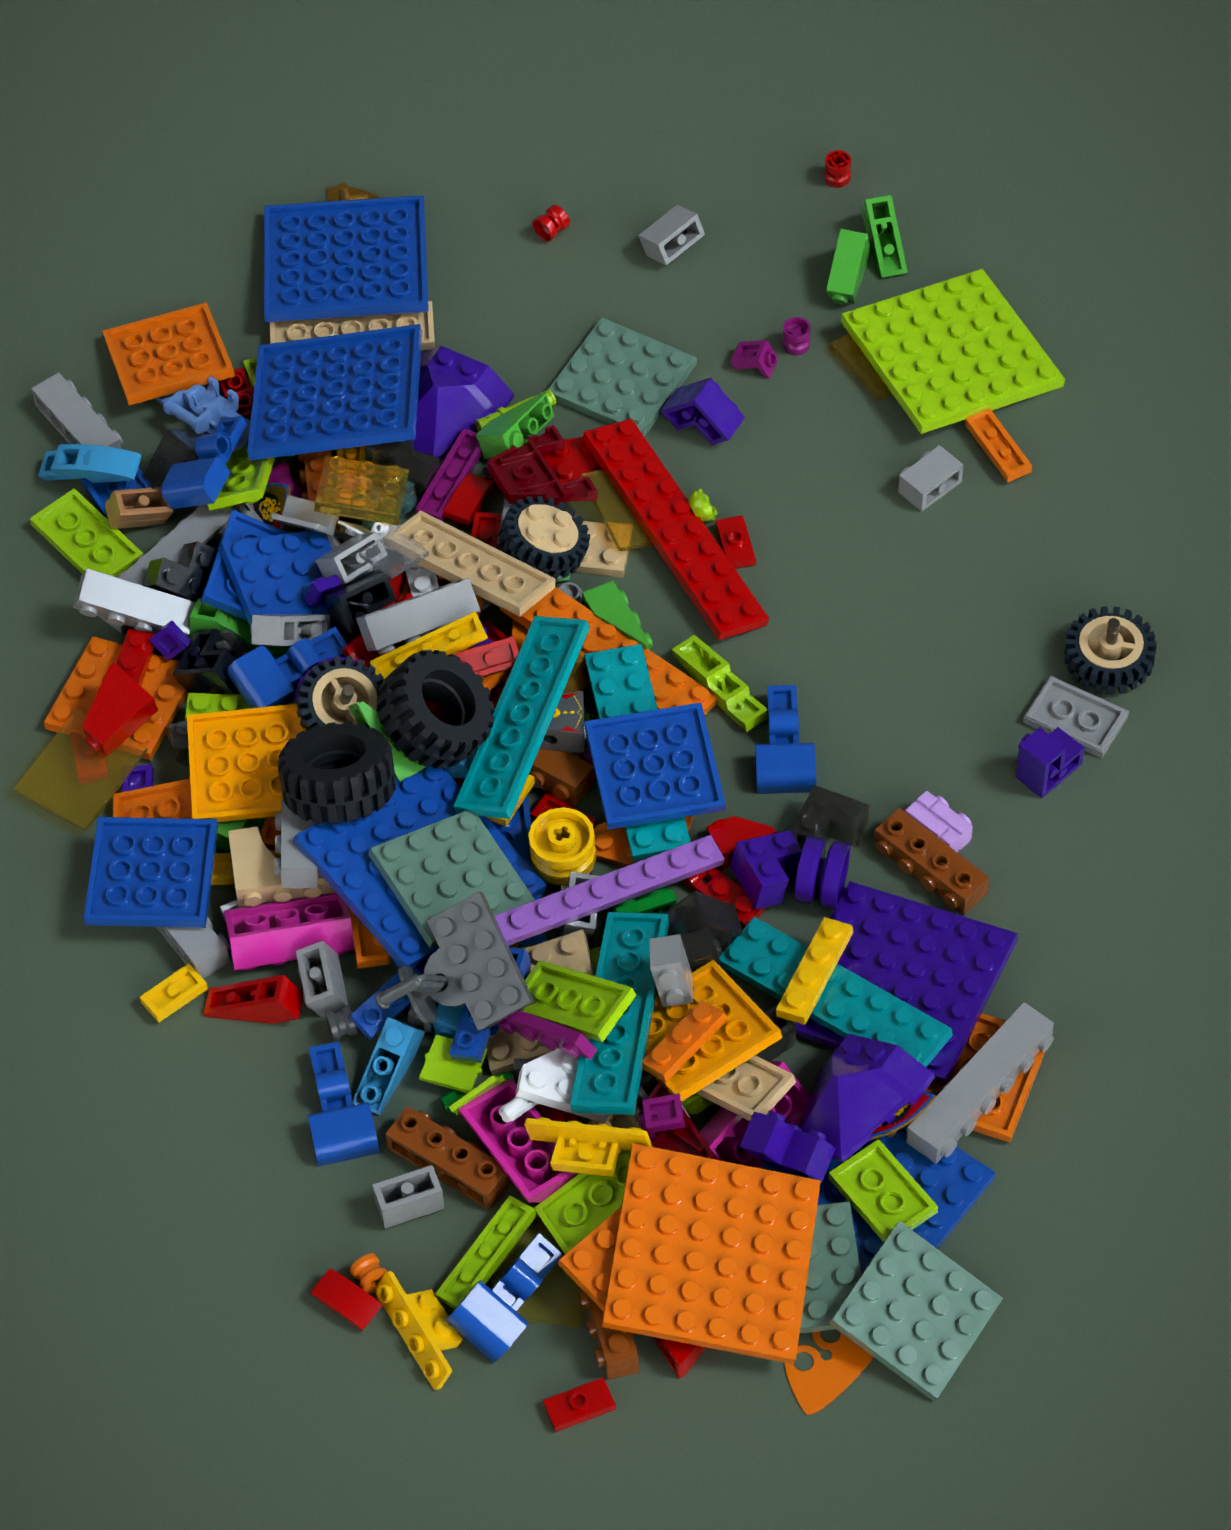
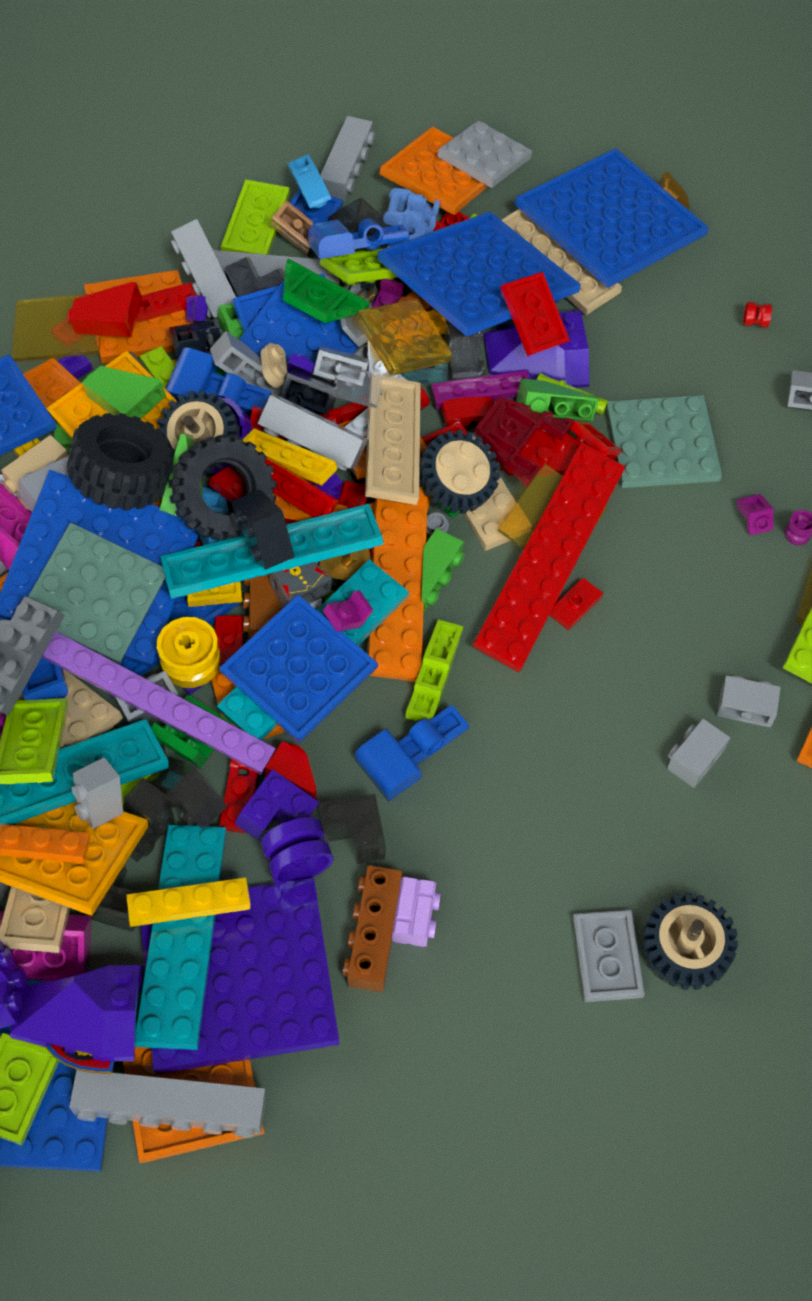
camera: 50 degrees right, 5 degrees up
(180, 308) = (485, 154): none -> light grey plate
(242, 741) = (123, 391): none -> bright green slope
(263, 524) = (319, 295): none -> green wing
(301, 602) = (274, 364): none -> tan plate
(430, 375) = (534, 313): none -> red tile
(514, 692) = (264, 527): none -> black brick
(572, 426) = (592, 437): none -> red plate
(634, 692) = (350, 613): none -> magenta bracket
(701, 506) = (587, 560): lime plate -> none
(706, 408) = (673, 508): dark purple brick -> none
(949, 542) = (698, 752): none -> light grey brick
(1047, 759) = (540, 960): dark purple brick -> none

